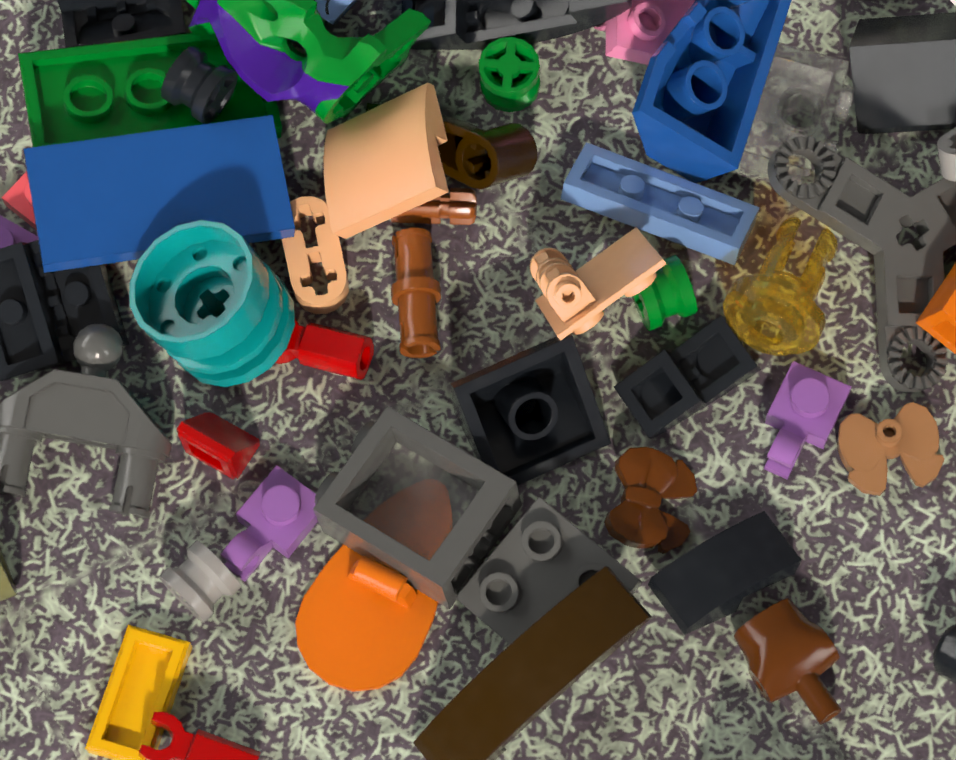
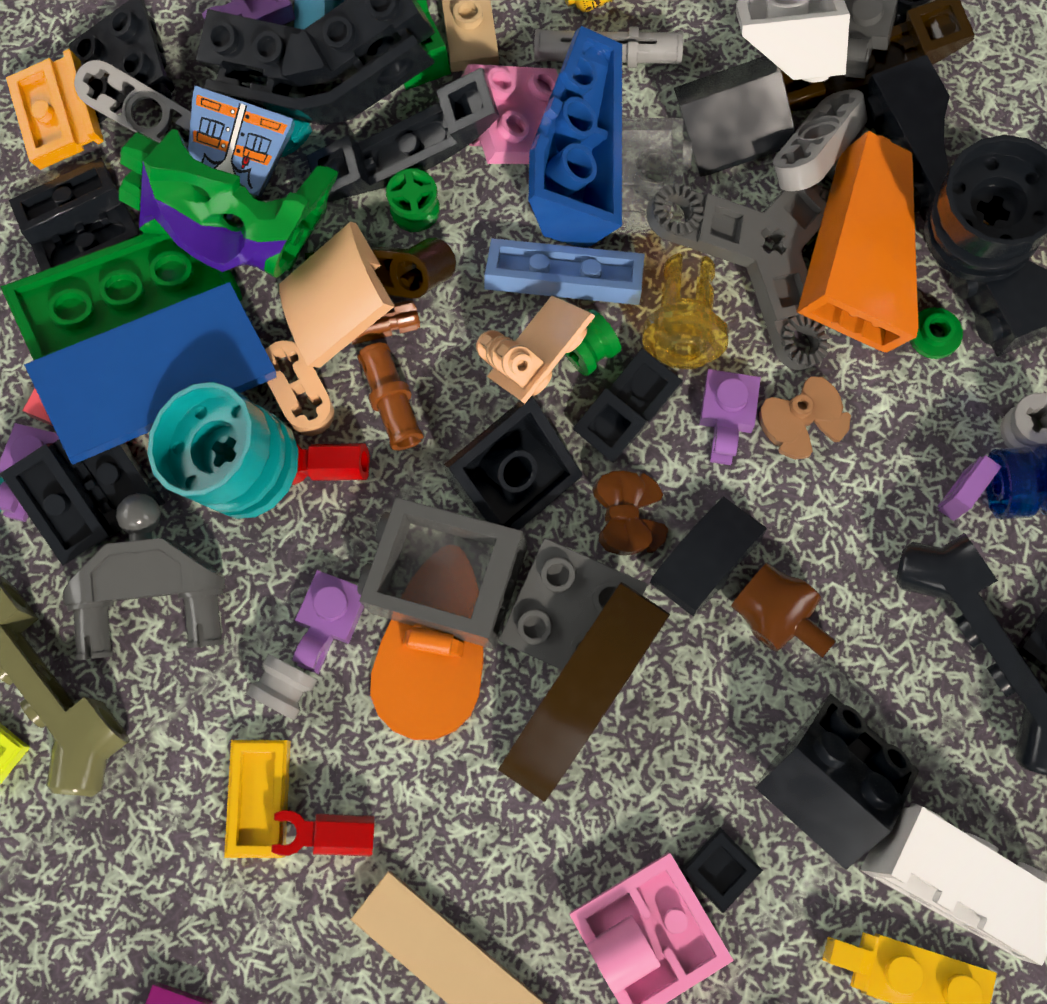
camera: 20 degrees left, 5 degrees up
(199, 85) = (160, 272): black wheel -> none
(217, 443) = (262, 564): red slope -> none

